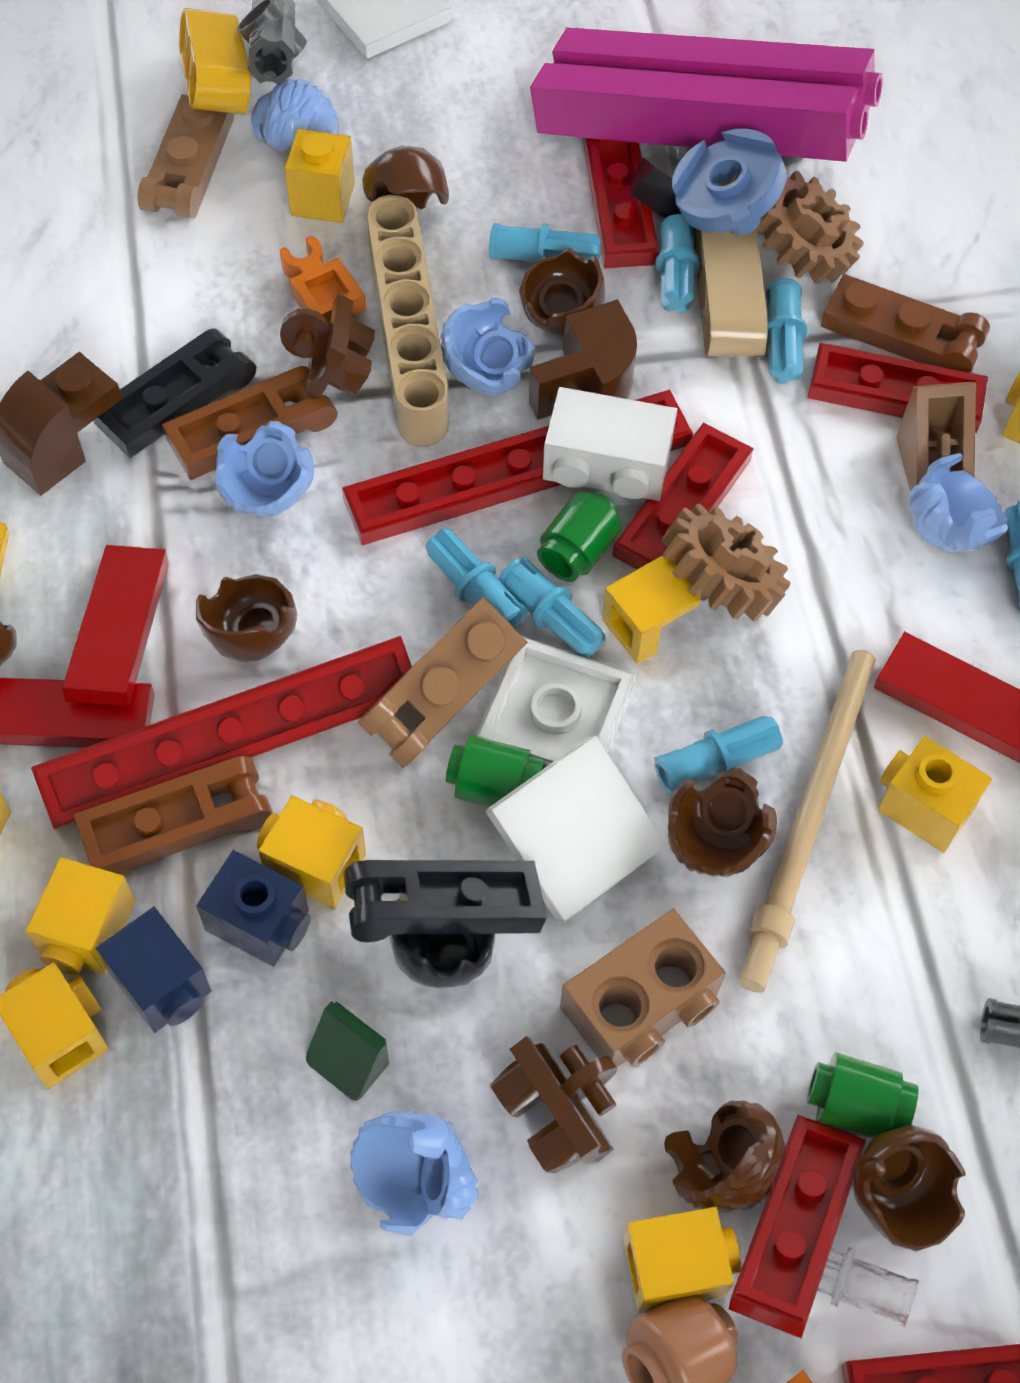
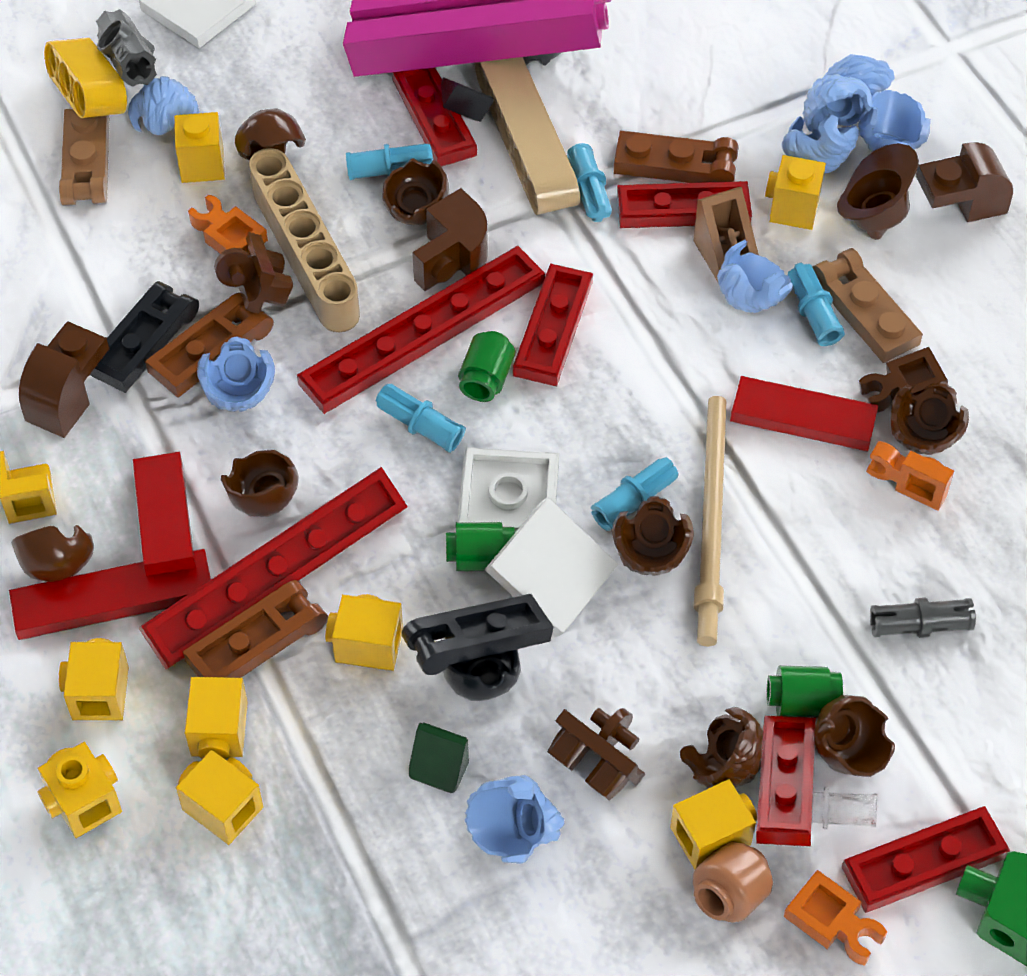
camera: 15 degrees left, 5 degrees down
(155, 971) = (284, 739): dark blue brick -> none
(255, 909) = (339, 681): dark blue brick -> none
(444, 680) = (422, 490): medium nougat plate -> none
(483, 350) = (371, 249): light blue hair -> none
(552, 607) = (483, 421): medium azure axle -> none
(608, 444) = (489, 294): white brick -> none
(630, 979) = (624, 658): medium nougat brick -> none
(643, 604) = (550, 400): yellow panel -> none
(677, 263) = (493, 151): medium azure axle -> none
(725, 562) = (600, 357): medium nougat gear -> none
(736, 205) = (532, 96): medium blue plate -> none
(811, 230) = (582, 102): medium nougat gear -> none
(931, 792) = (792, 480): yellow brick -> none

